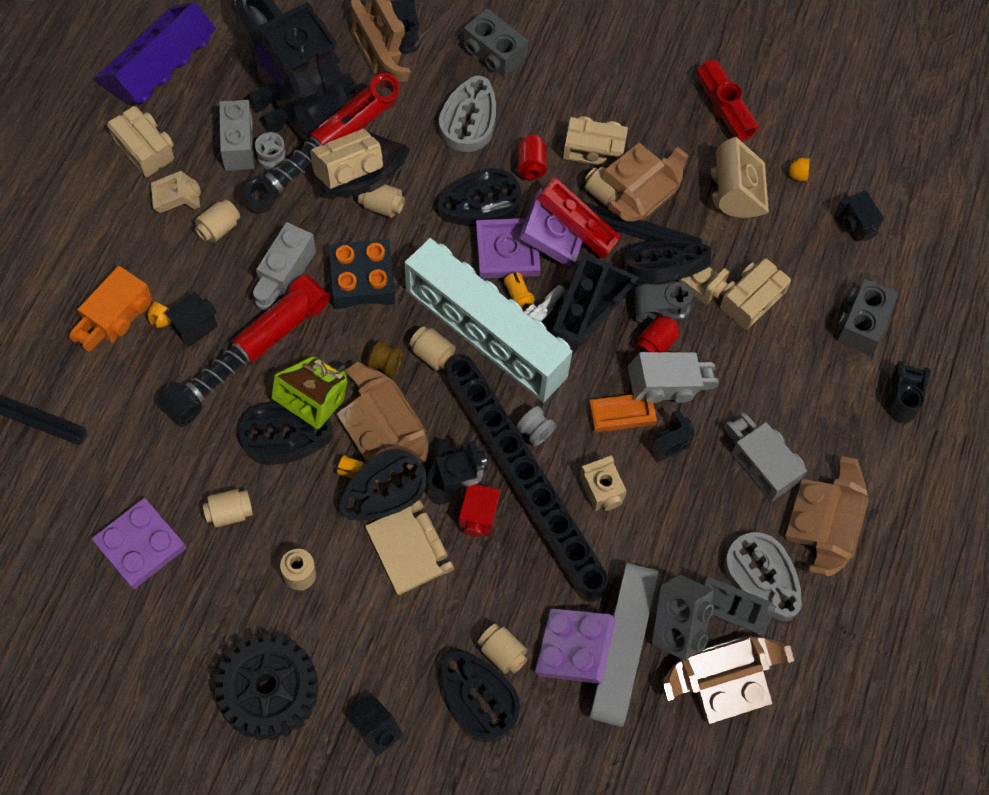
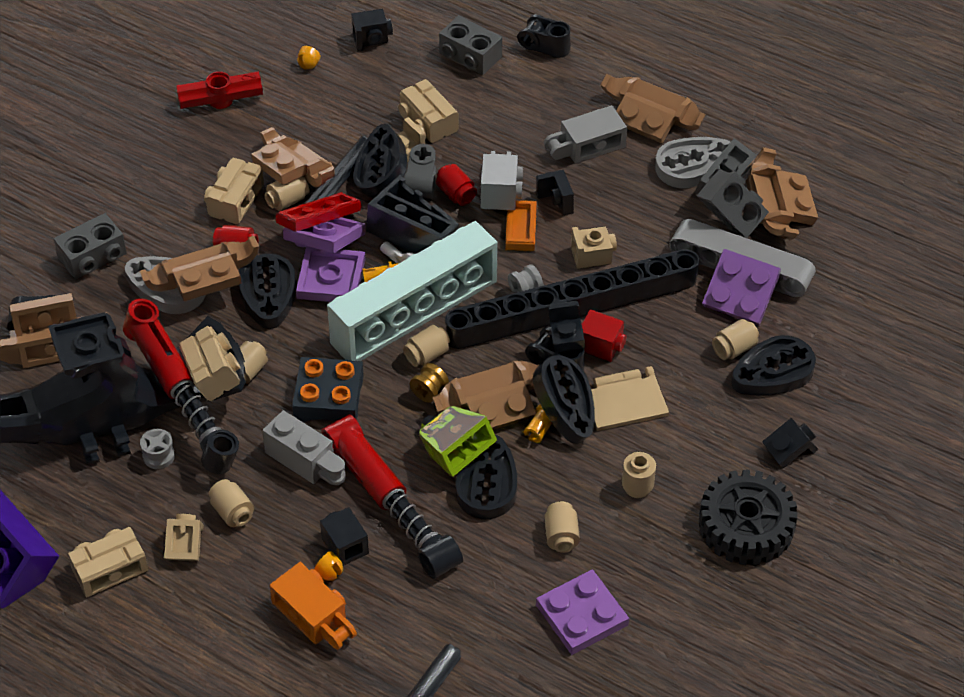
camera: 75 degrees left, 15 degrees down
(236, 135) = (131, 472): light grey brick -> none
(475, 133) = (202, 270): none -> medium nougat plate
(739, 181) = (311, 96): tan brick -> none

